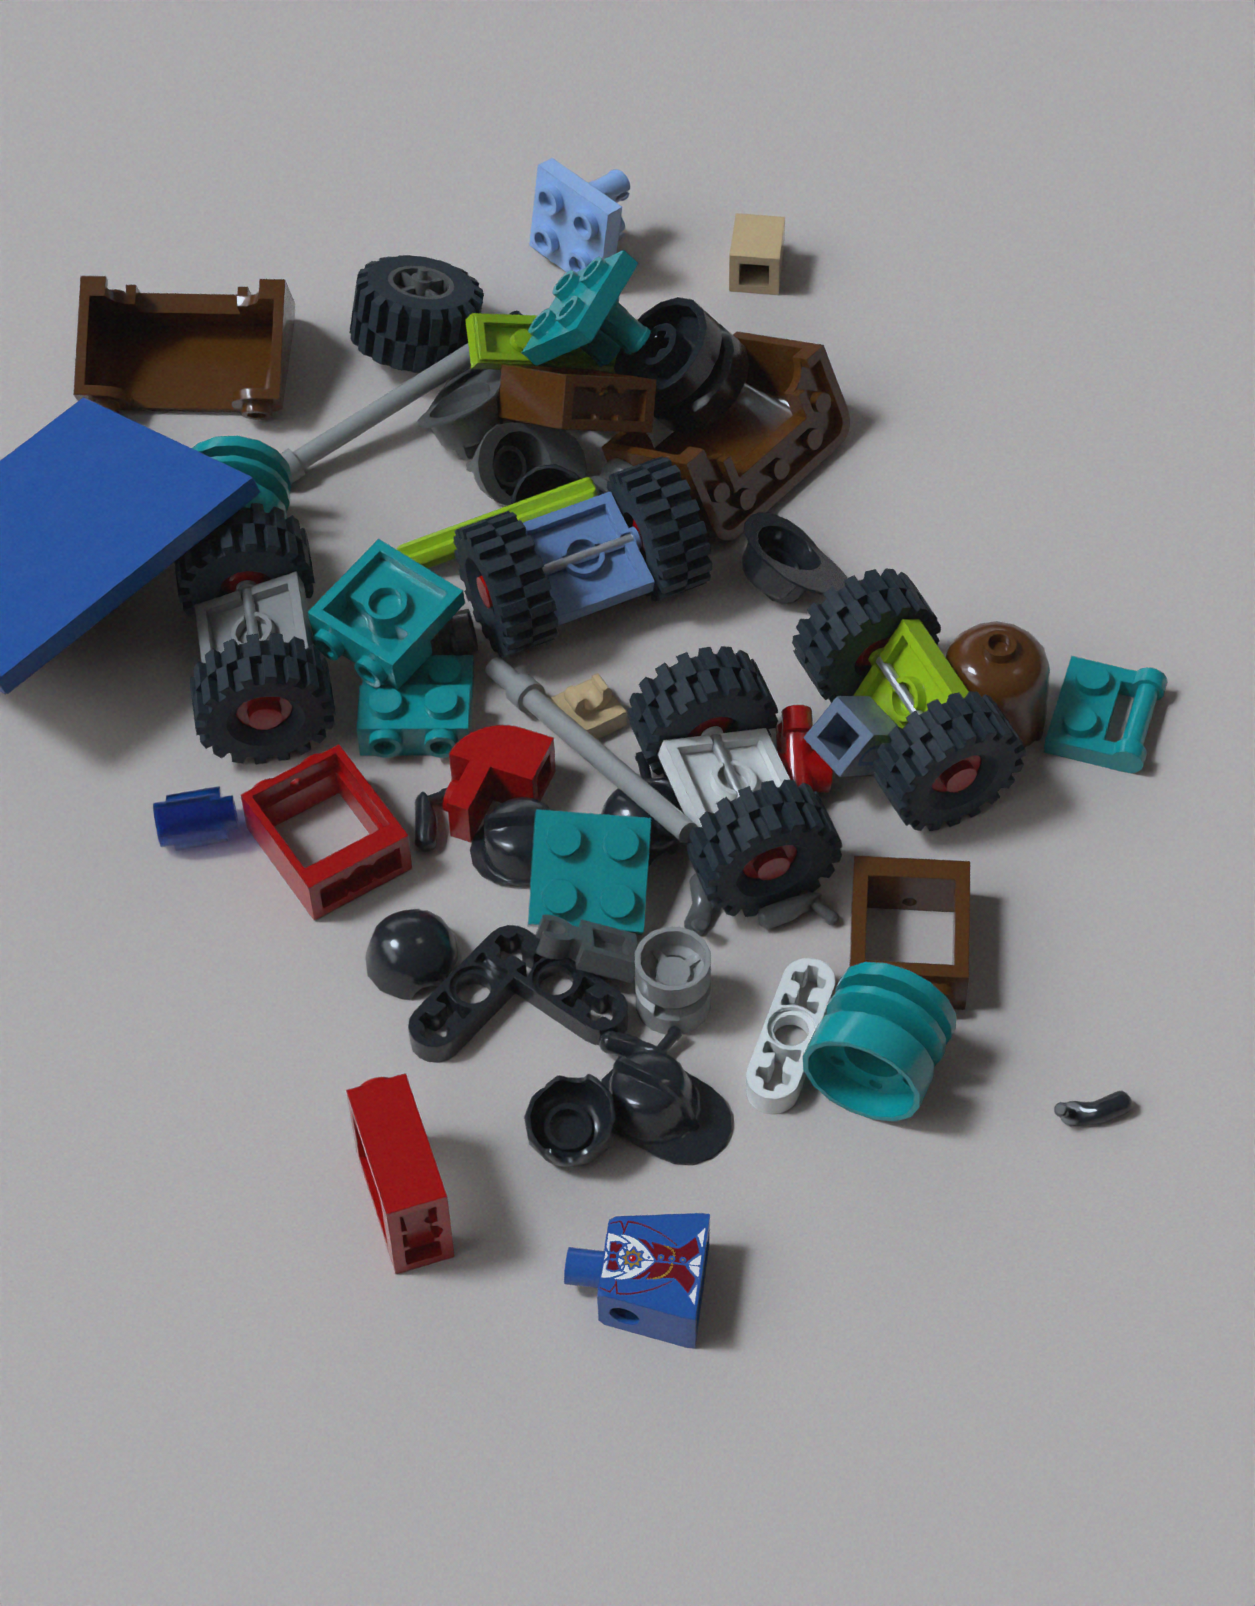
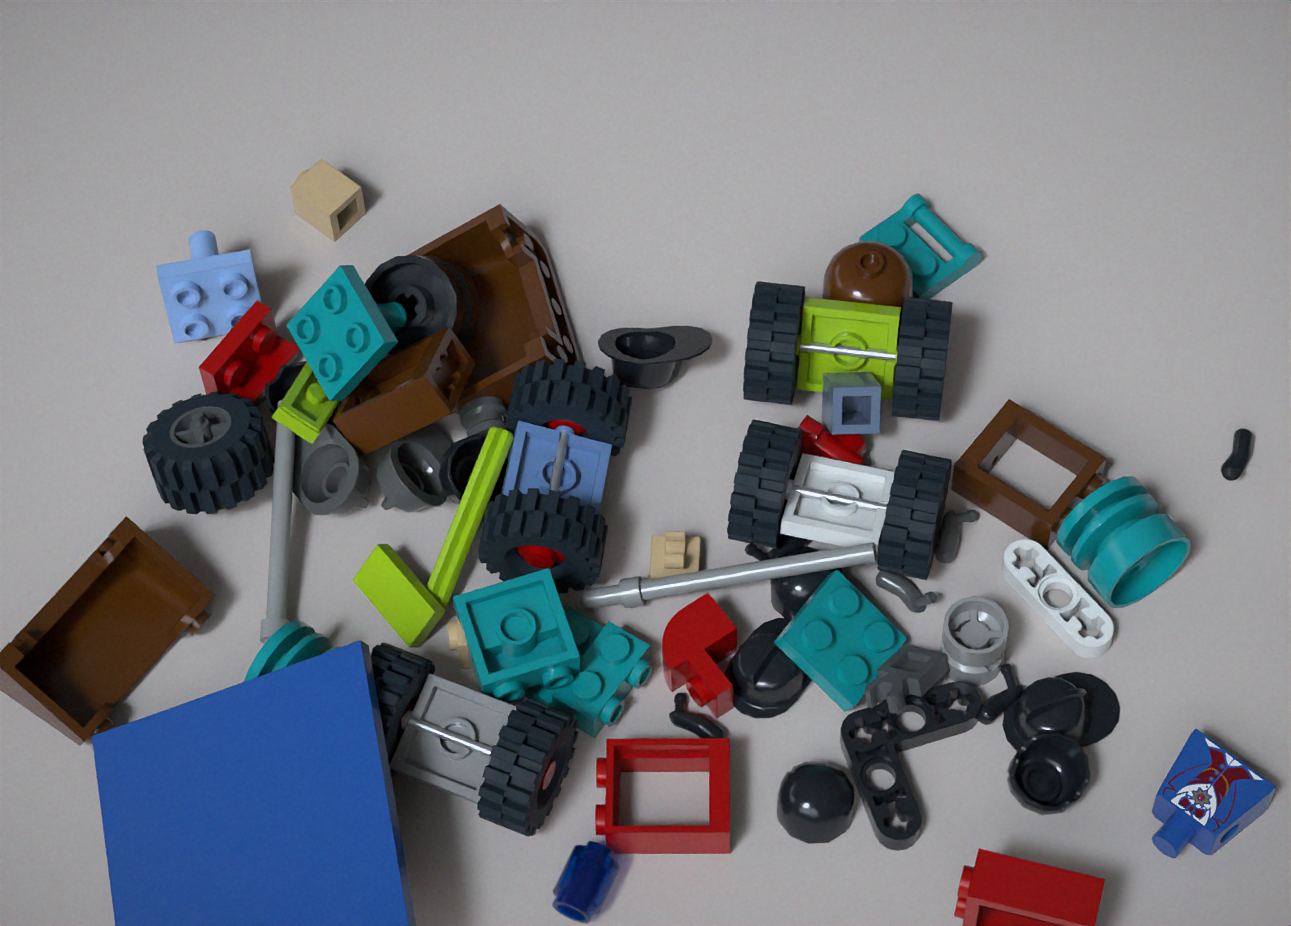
camera: 55 degrees left, 5 degrees up
(392, 517) = (398, 595): none -> lime tile
(527, 278) = (248, 356): none -> red bracket

